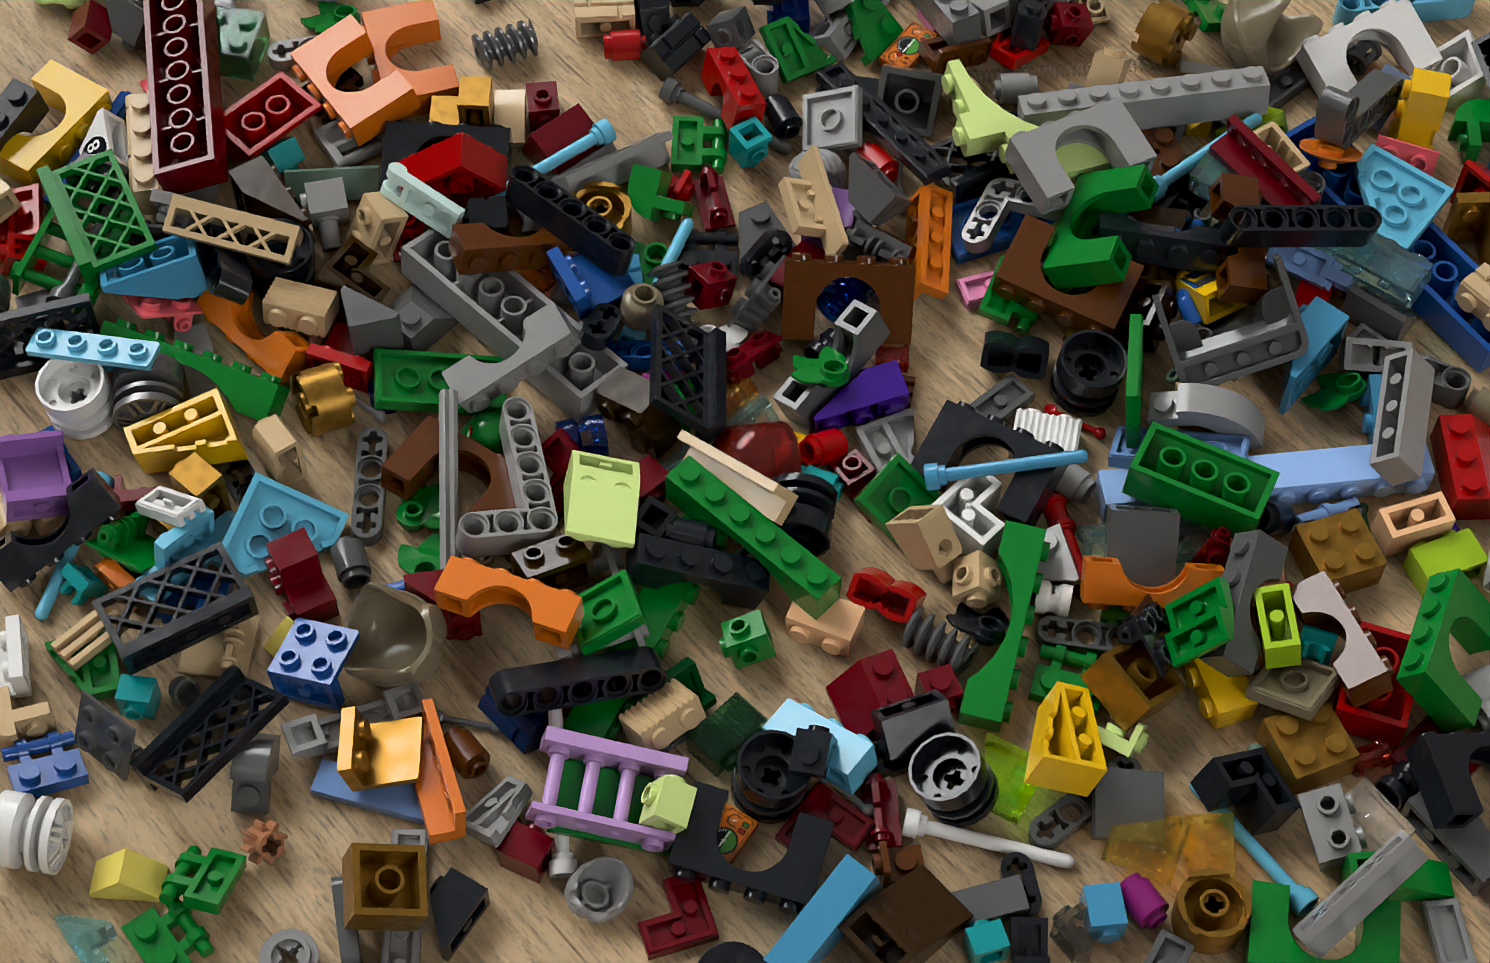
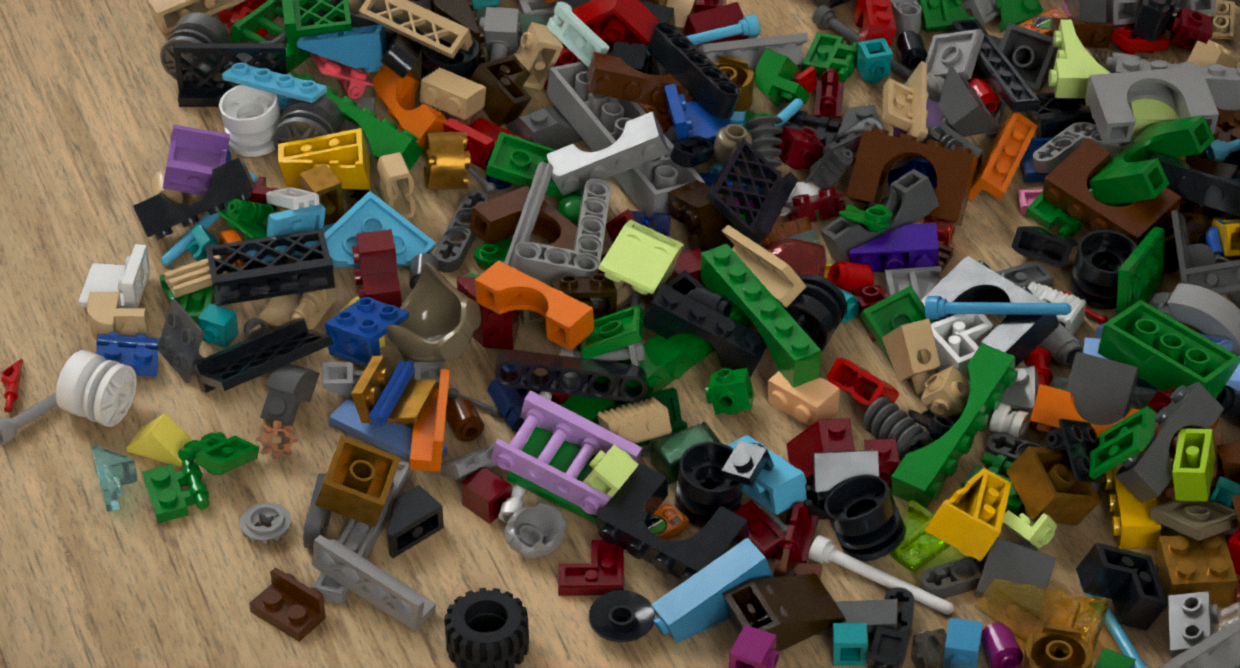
camera: 20 degrees right, 15 degrees down
(370, 324) = (503, 112): dark grey slope -> none
(378, 749) = (391, 393): none -> blue axle

